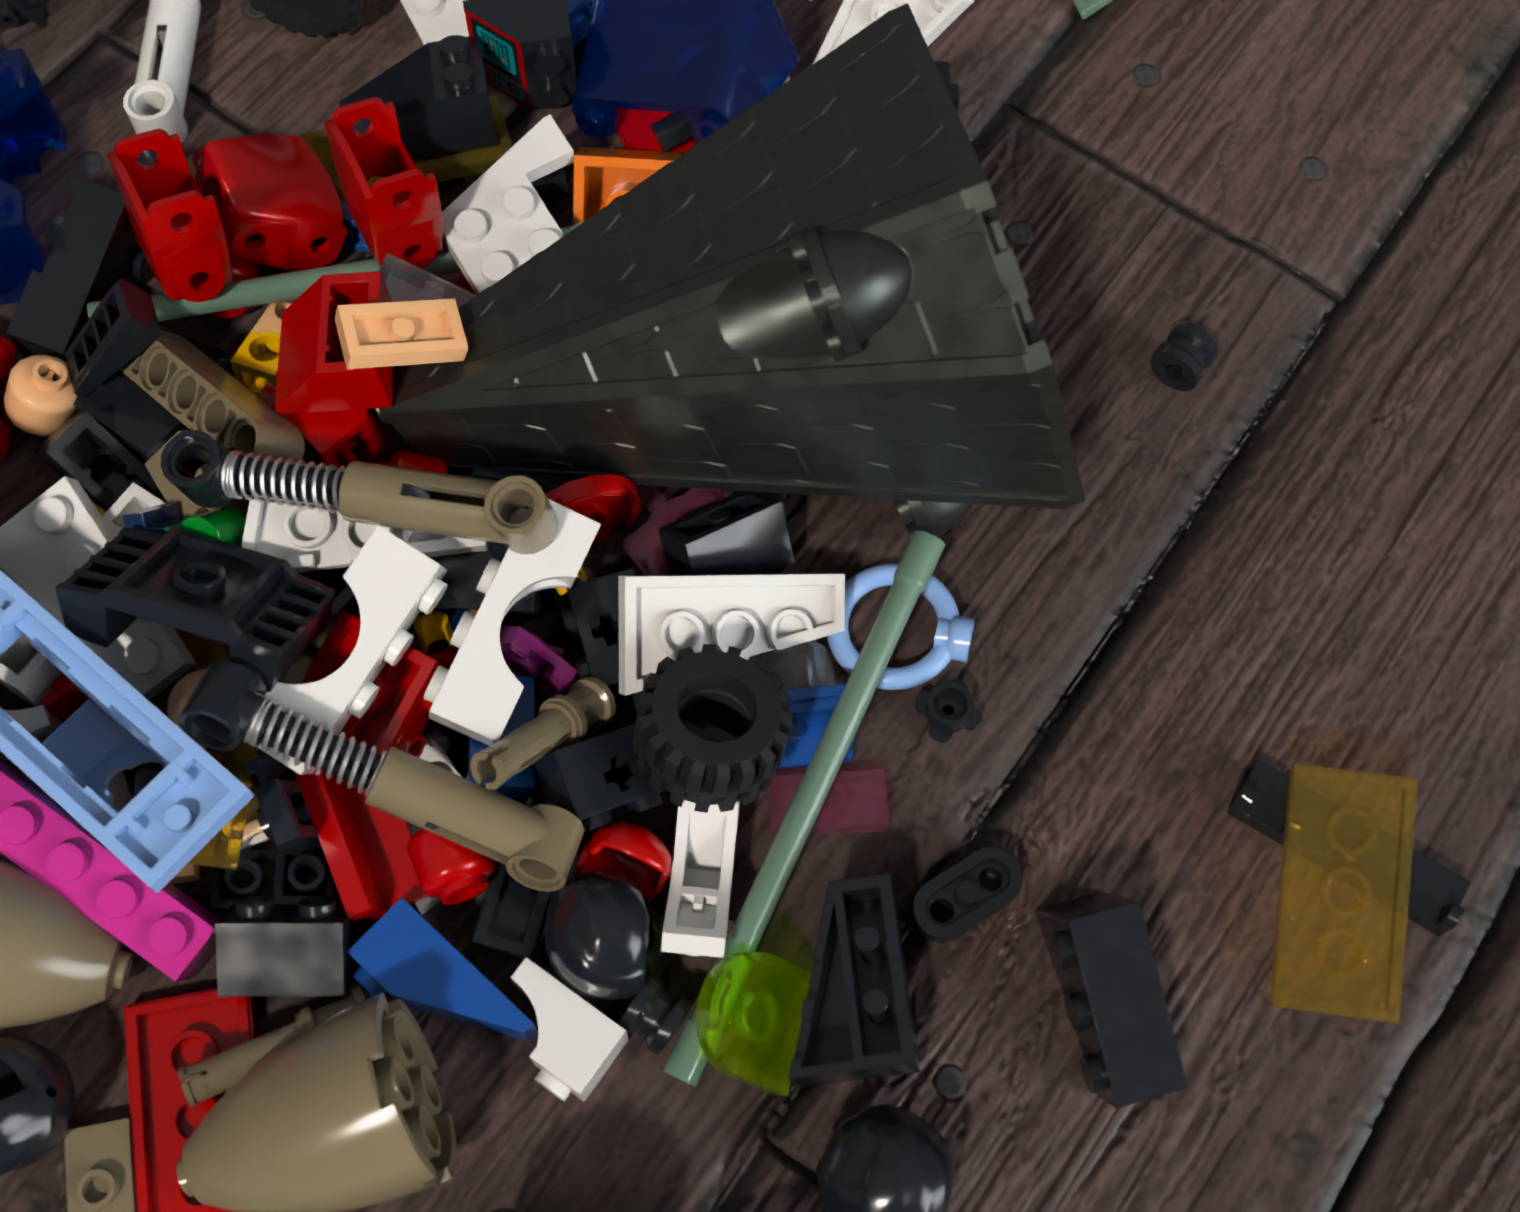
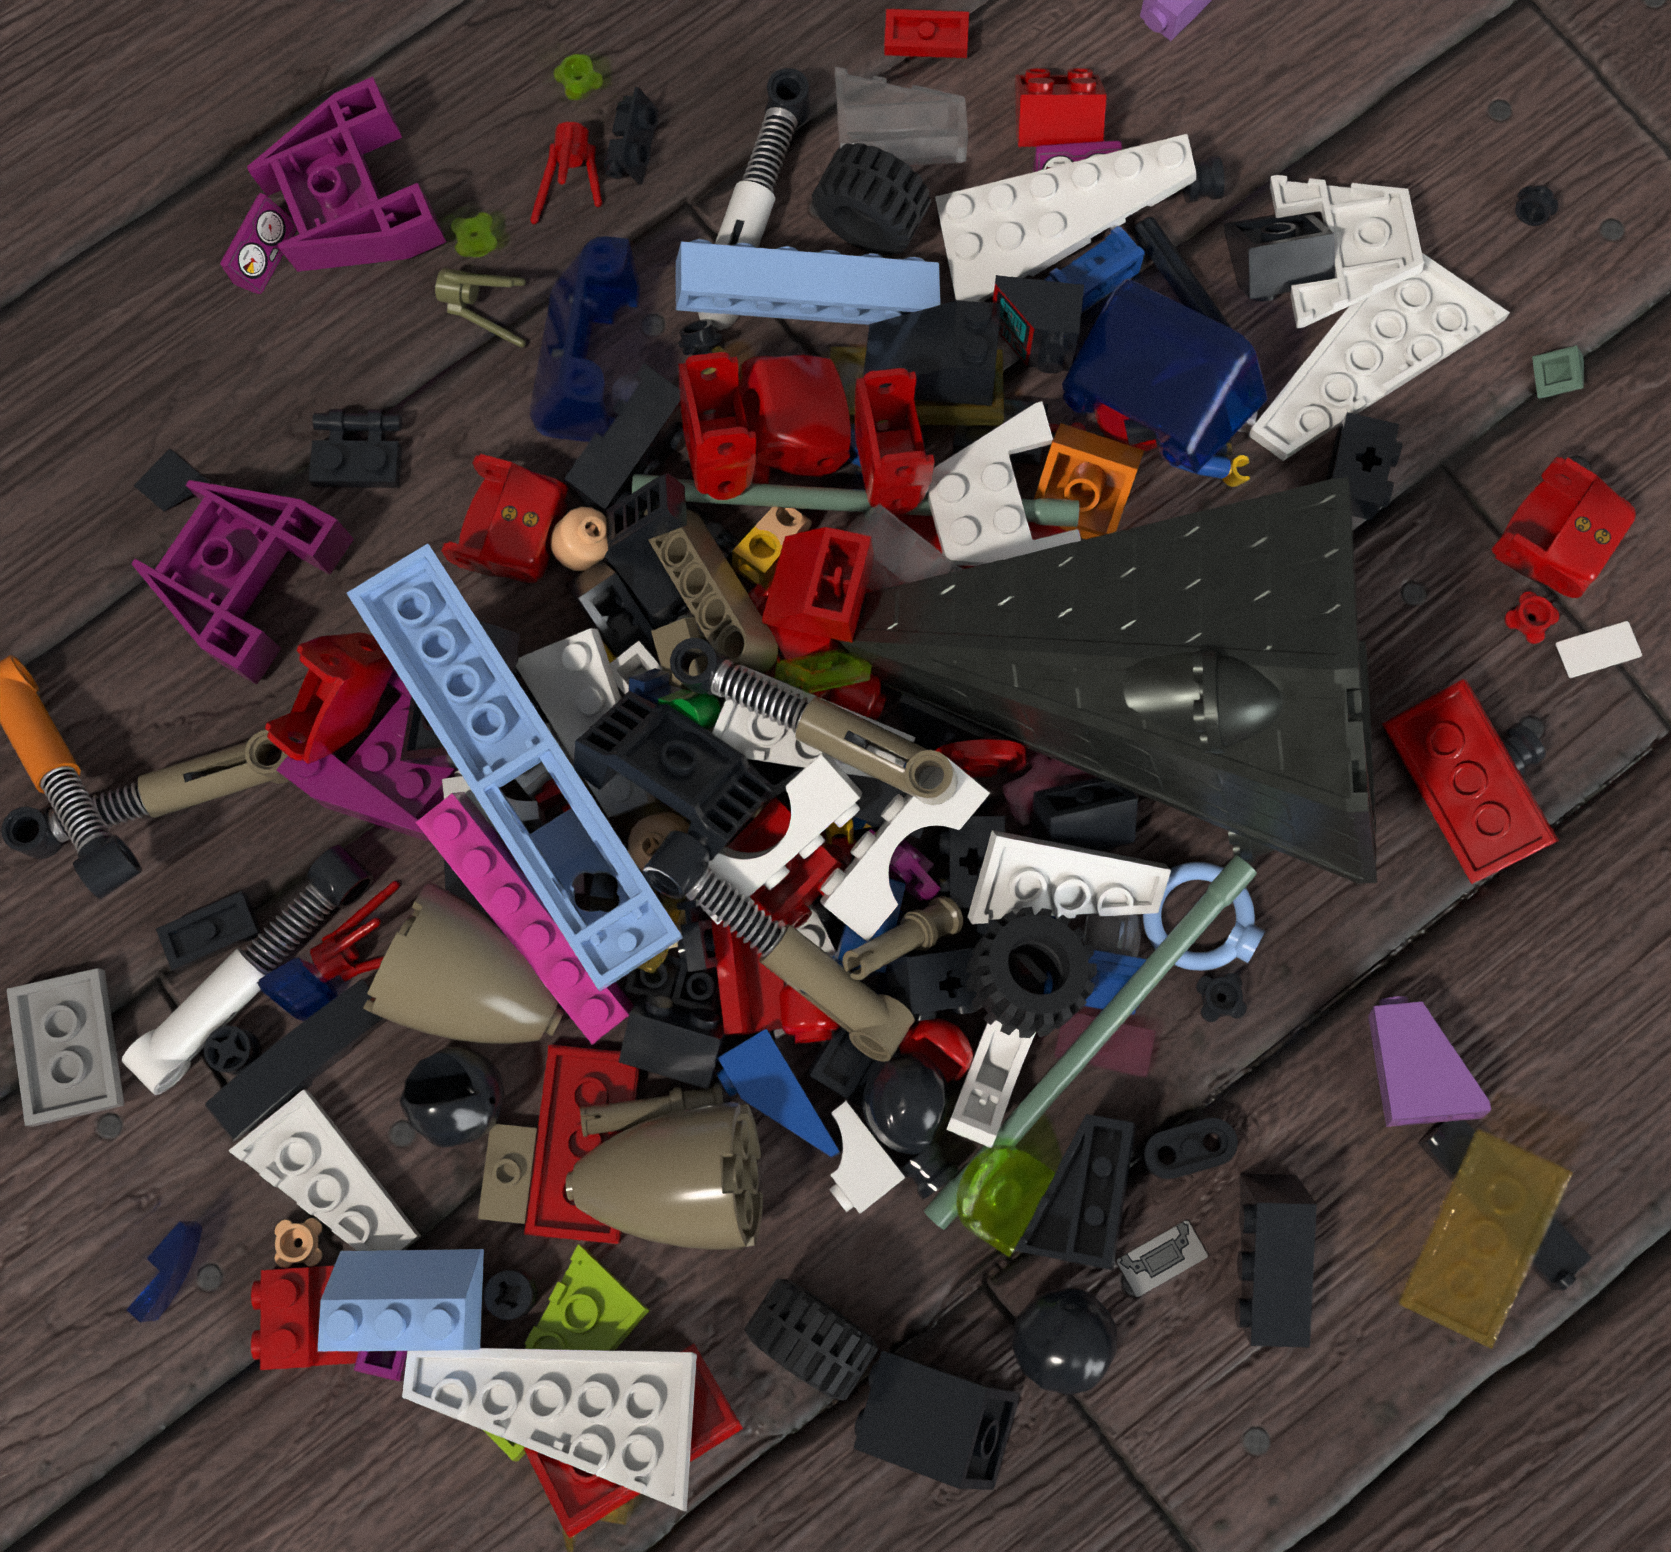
camera: 25 degrees right, 10 degrees up
(240, 68) = (801, 283): none -> light blue brick
(369, 448) = (823, 670): none -> clear neon green tile
(400, 333) = (876, 599): light nougat plate -> none
(974, 1041) = (1162, 1258): none -> sticker
(1149, 399) = (1469, 781): none -> red tile
(1154, 211) = (1542, 610): none -> red plate
(1156, 127) = (1565, 529): none -> red piece
(1203, 720) = (1419, 1068): none -> medium lavender slope
(1232, 240) = (1598, 649): none -> white sticker

